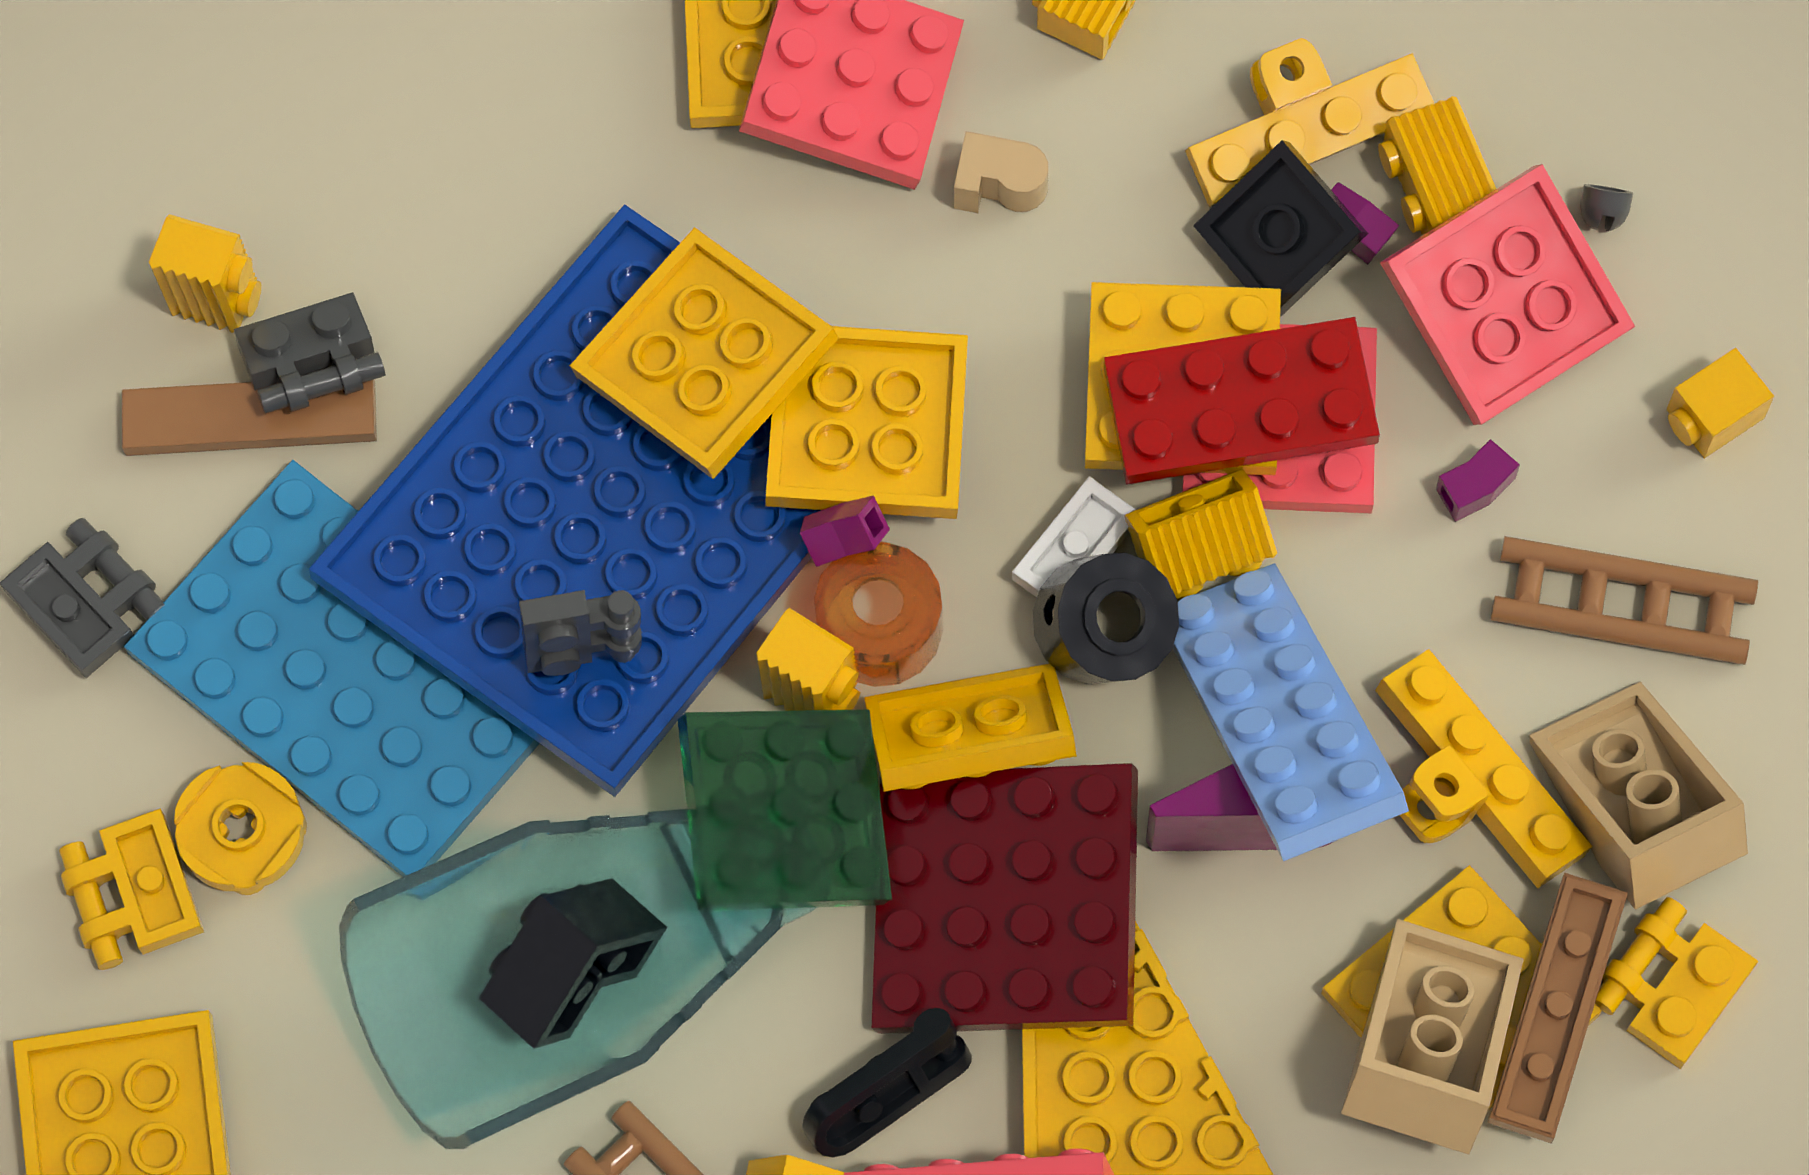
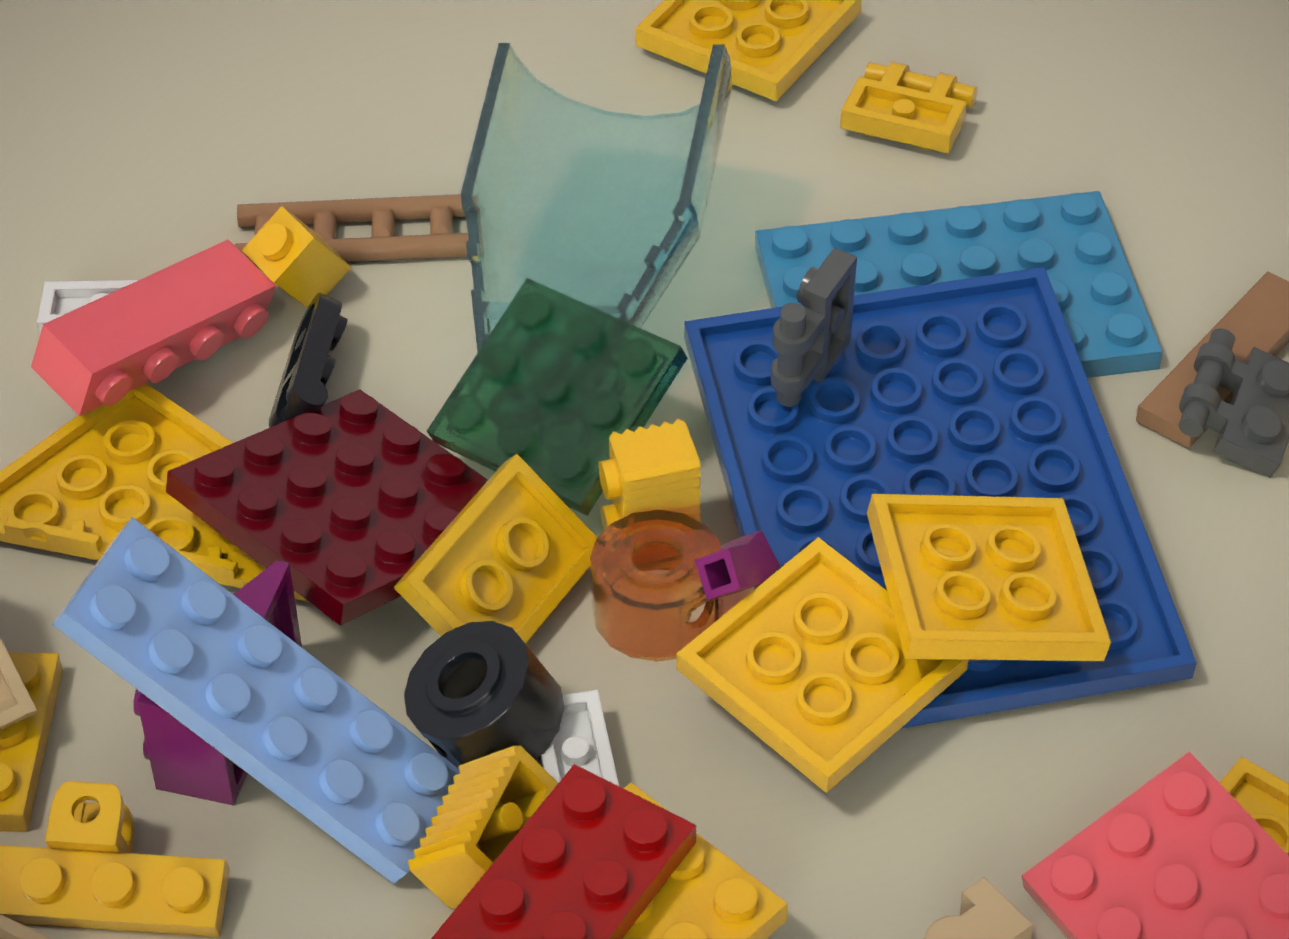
camera: 130 degrees right, 25 degrees down
(67, 607) = (1163, 180): dark grey plate -> none
(234, 791) = (922, 169): yellow plate -> none
(565, 955) = (589, 232): black brick -> none

